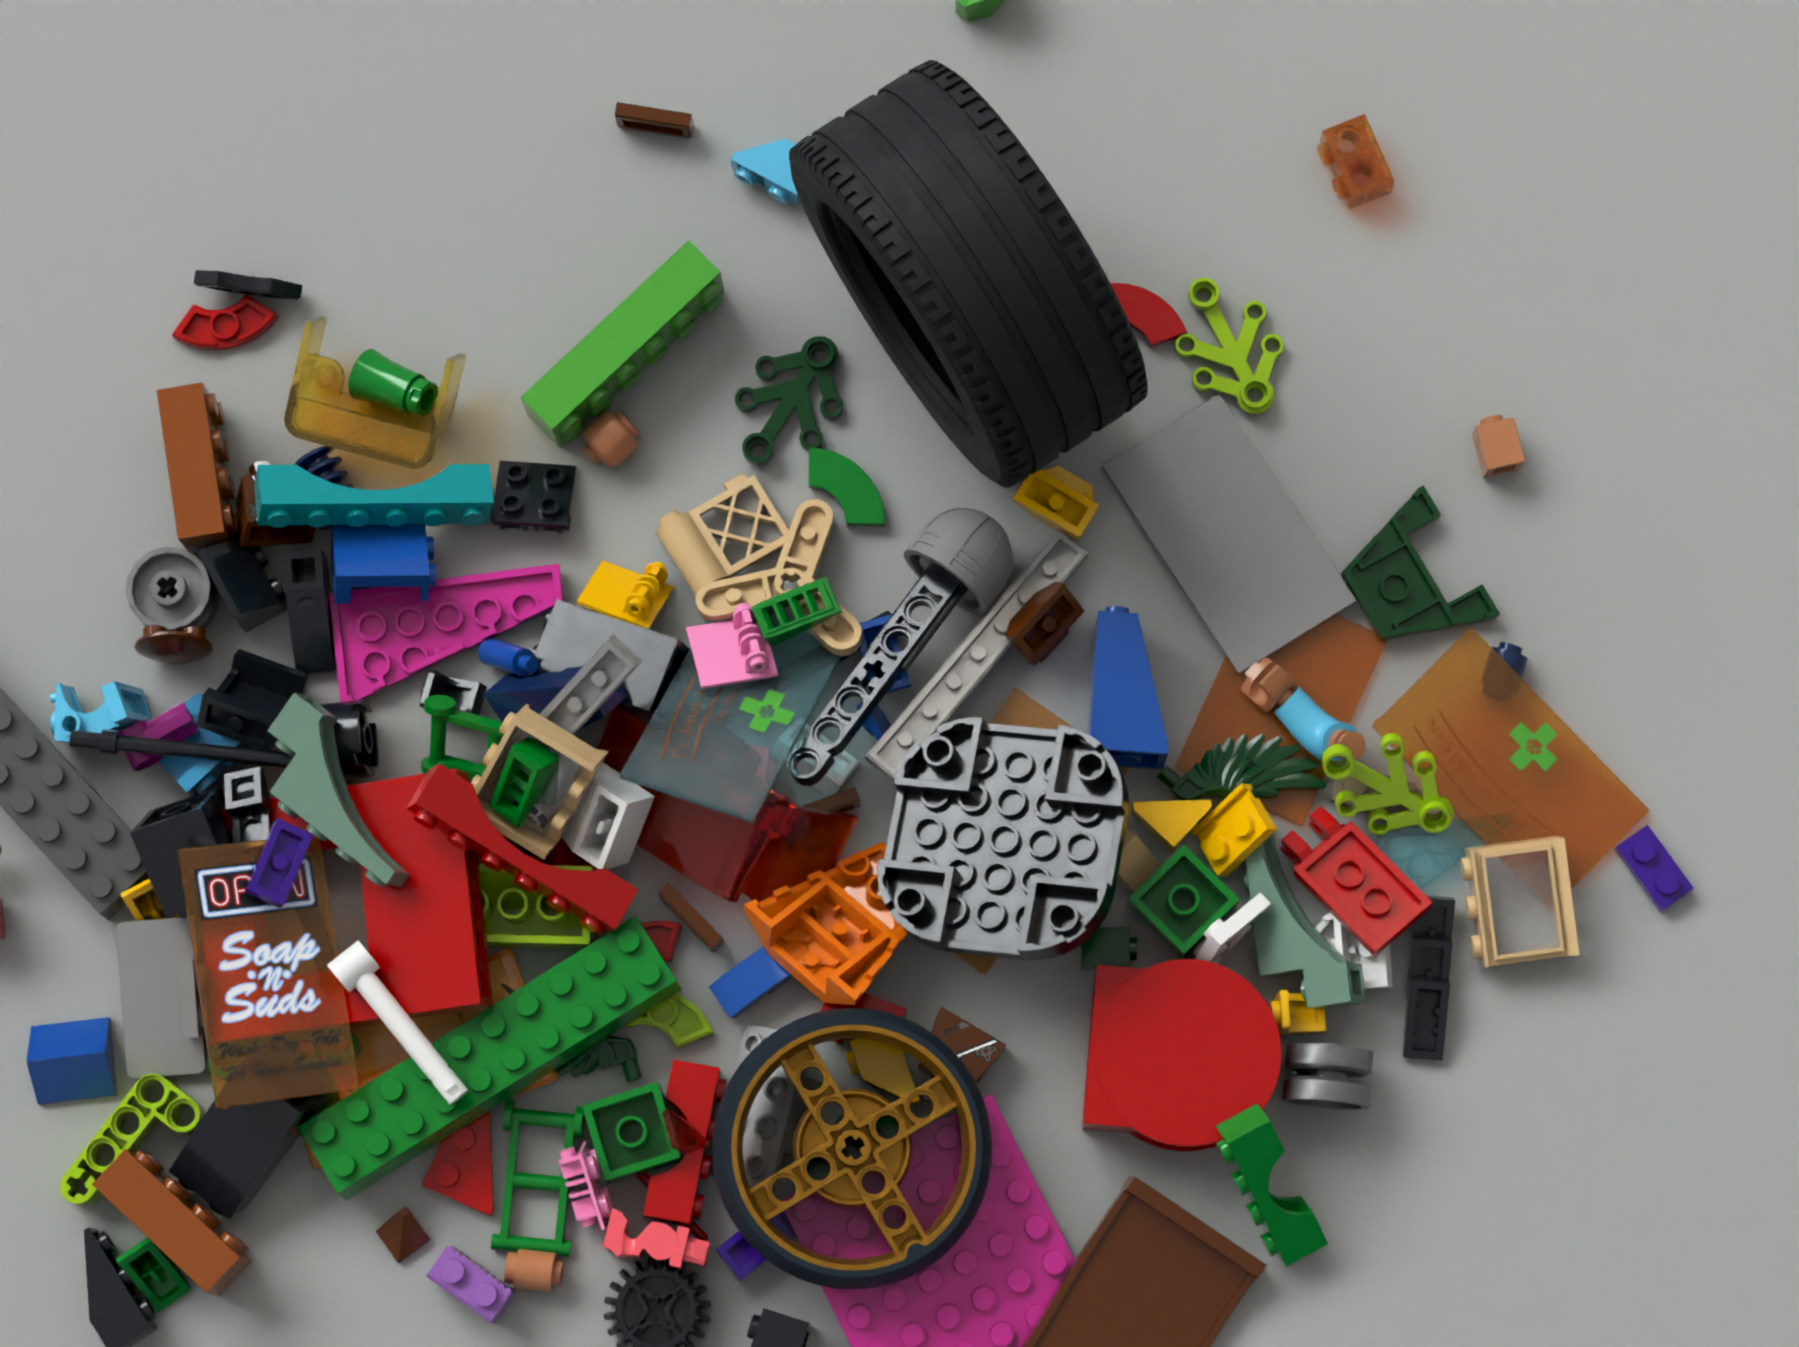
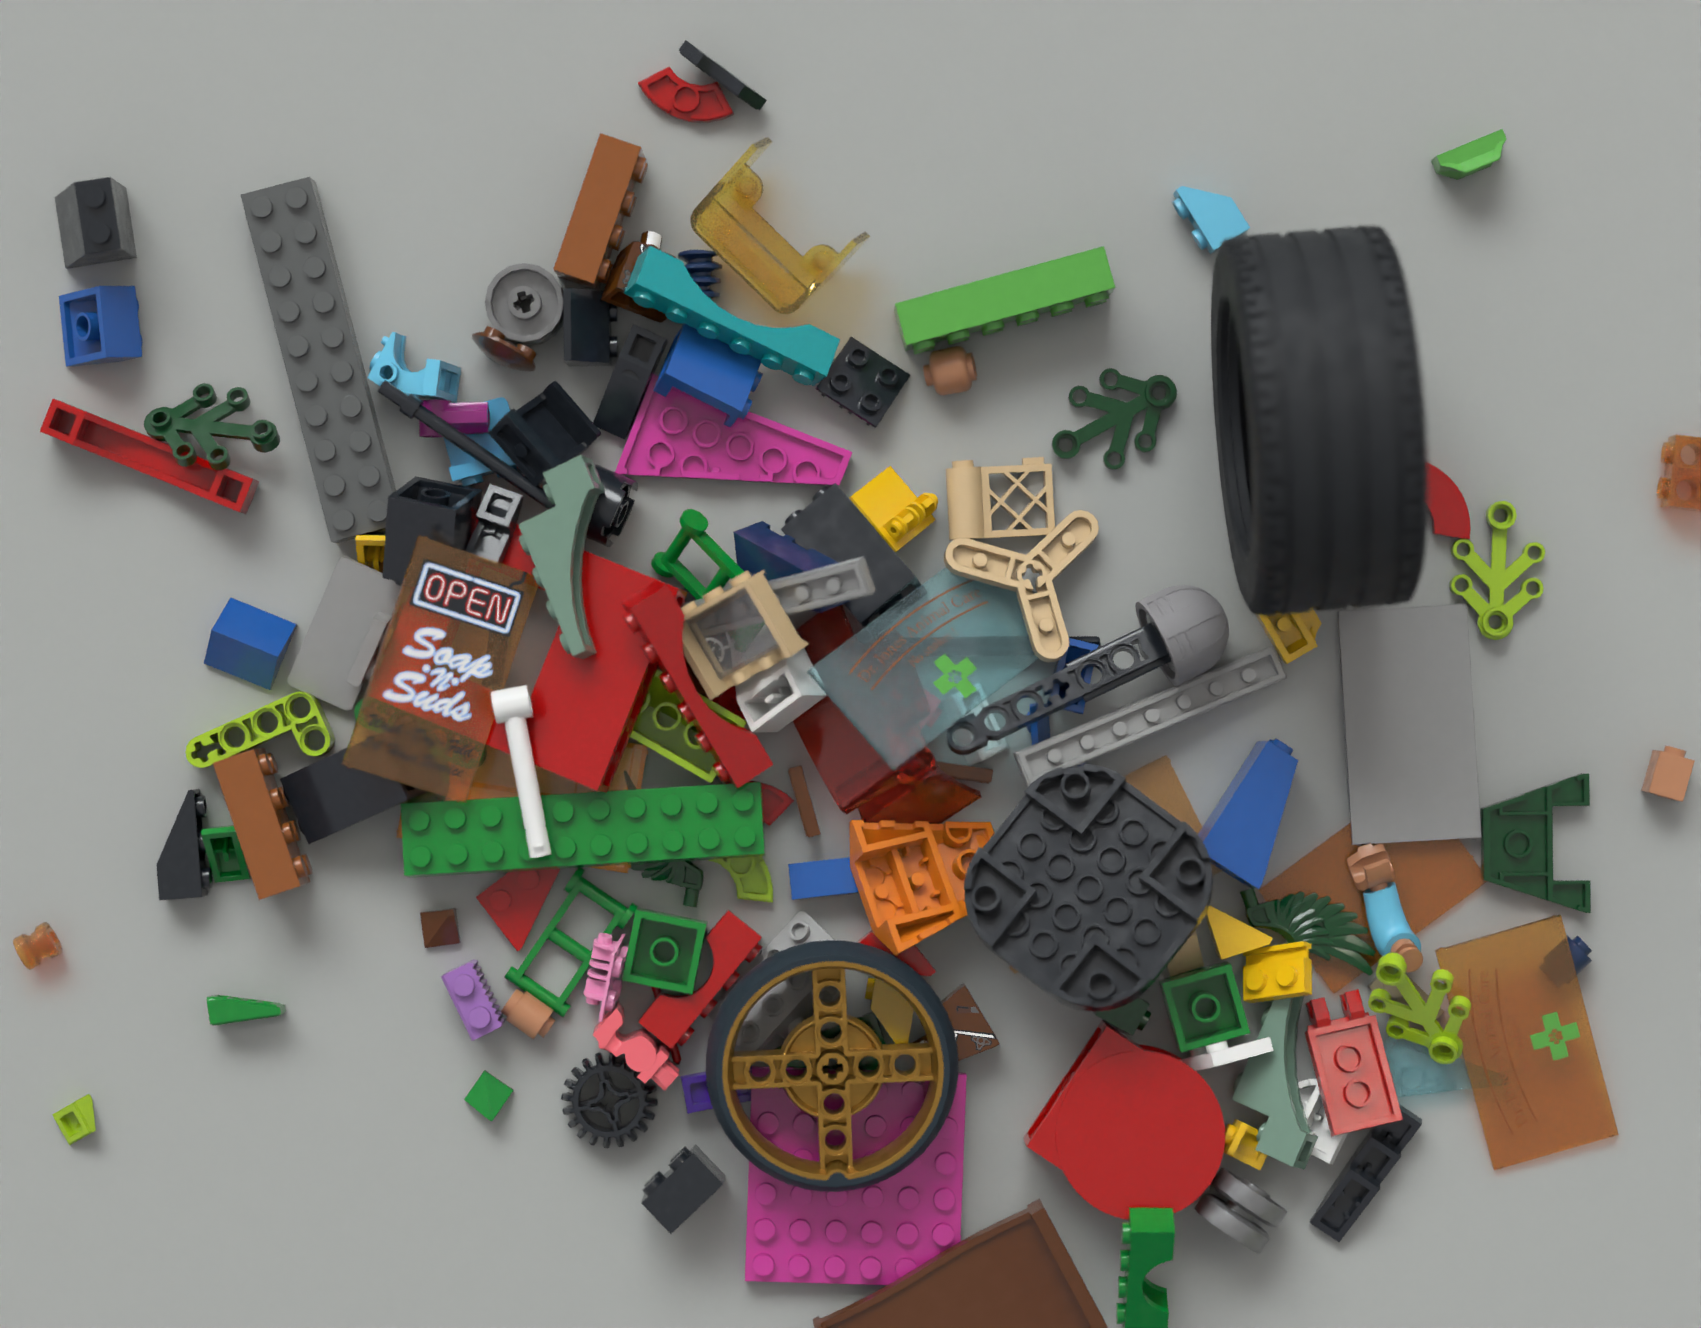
camera: 20 degrees right, 10 degrees up
(278, 863) = (495, 588): dark purple plate -> none
(391, 385) = (795, 228): green plant -> none
(466, 693) = (720, 519): black bracket -> none
(507, 657) = (770, 509): blue cylinder -> none
(538, 764) = (745, 621): green slope -> none
(654, 120) = (1131, 118): reddish brown tile -> none
(682, 1133) = (704, 976): clear red slope -> none
(731, 650) = (954, 607): bright pink hinge -> none
(791, 598) = (1023, 617): green slope -> none
(848, 485) = (1123, 515): green tile -> none
(1043, 622) = (1218, 718): reddish brown slope -> none
(1520, 901) = (1473, 1153): window -> none
(1653, 868) = (1594, 1182): dark purple plate -> none

